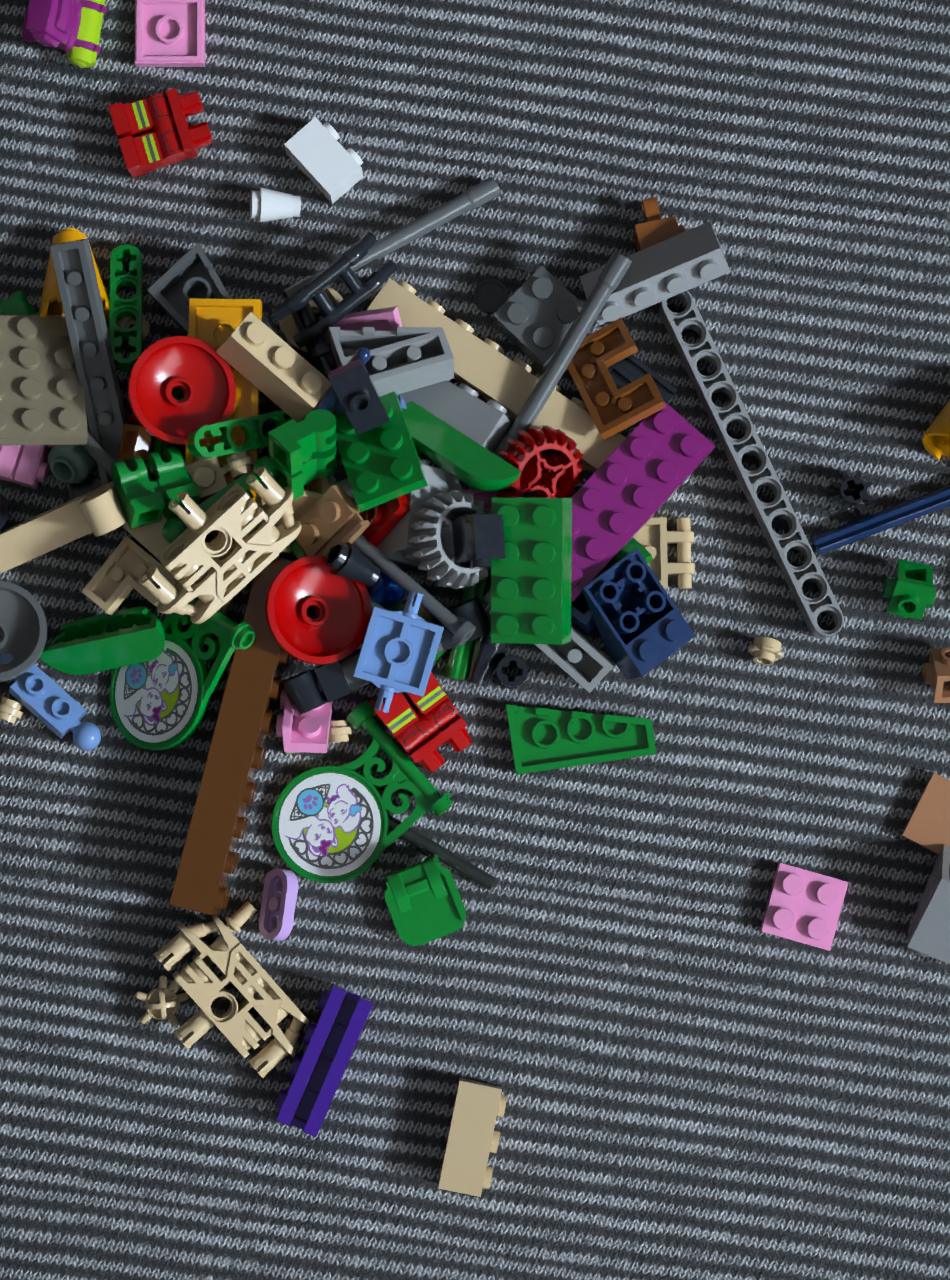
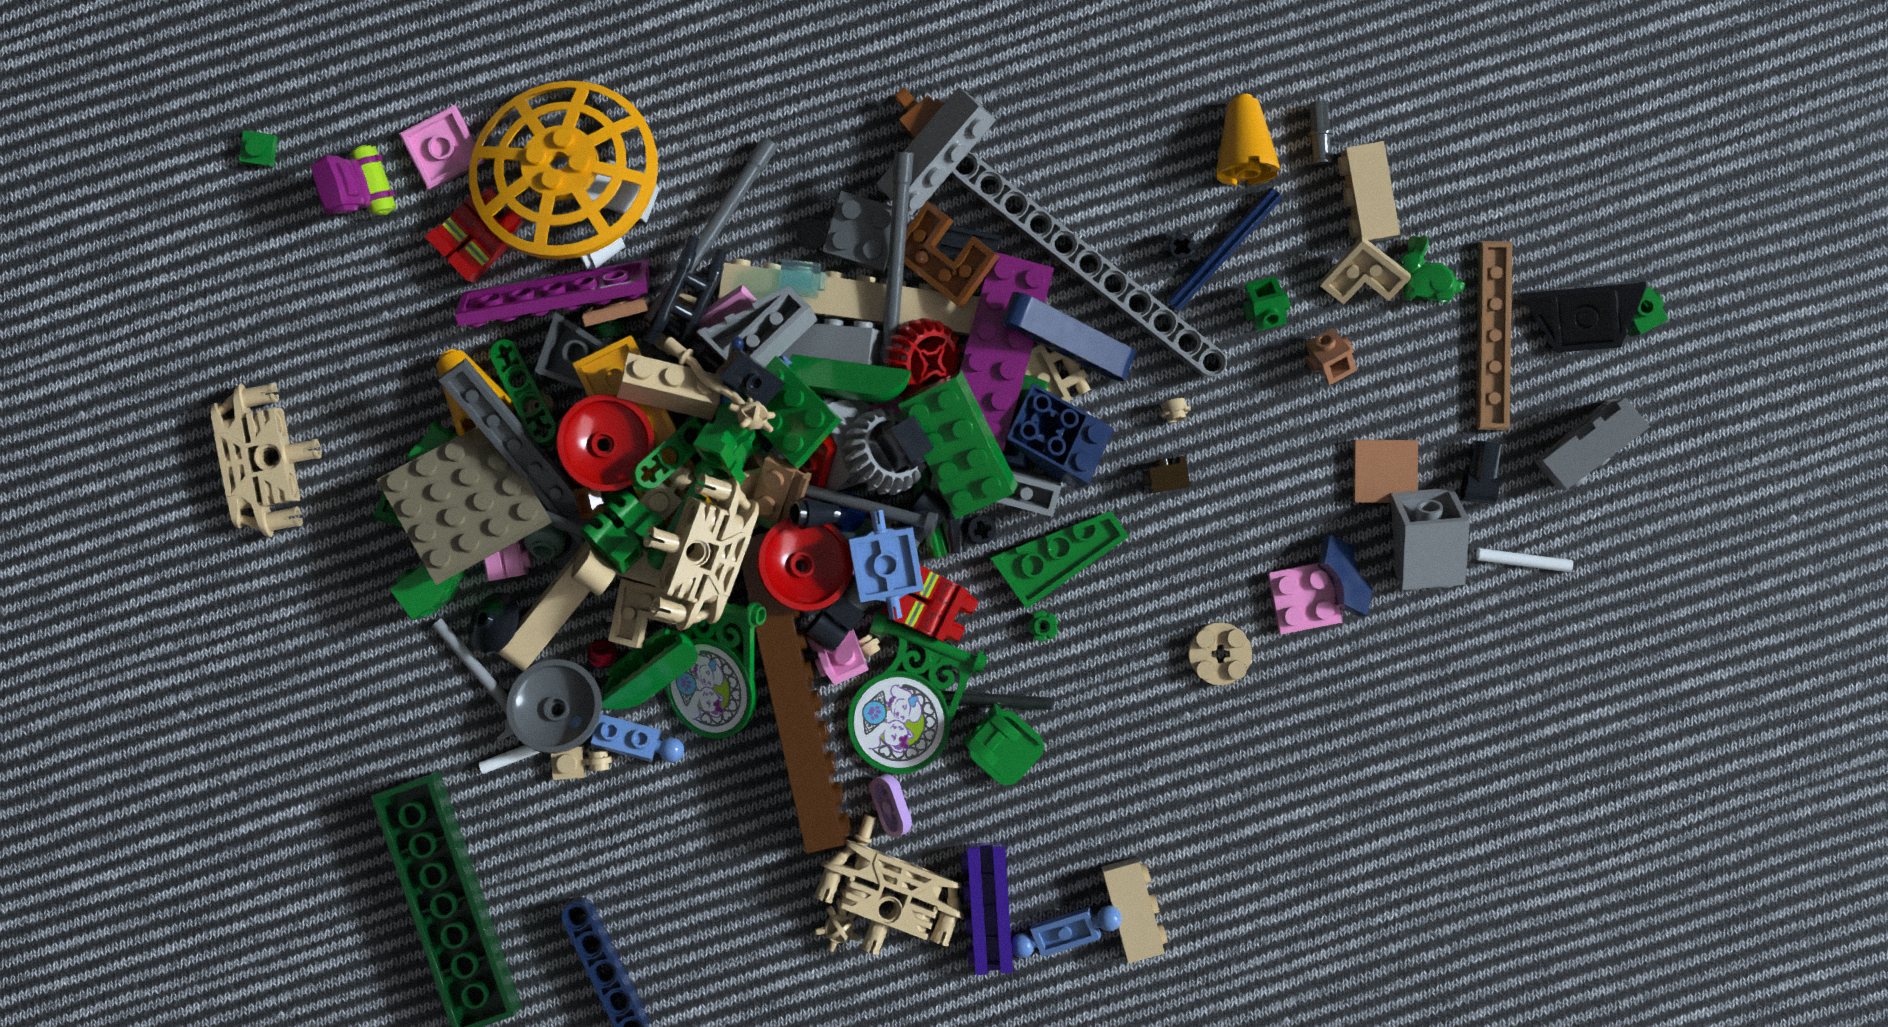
camera: 25 degrees left, 5 degrees up
(68, 604) = (602, 653): none -> dark red plate
(215, 226) = (553, 292): none -> magenta plate
(243, 286) = (609, 328): none -> green plate
(260, 270) = (616, 309): none -> nougat tile
(278, 121) = (568, 181): none -> light orange dish
(340, 431) = (749, 413): none -> tan piece
(390, 1124) = (1066, 931): none -> medium blue plate
(461, 330) = (803, 277): none -> clear light blue brick
(524, 791) = (1051, 626): none -> green plate
(670, 926) = (1208, 667): none -> tan plate
(695, 520) = (1068, 336): none -> beam
(724, 711) = (1166, 476): none -> dark brown brick
(855, 920) = (1350, 588): none -> dark blue tile

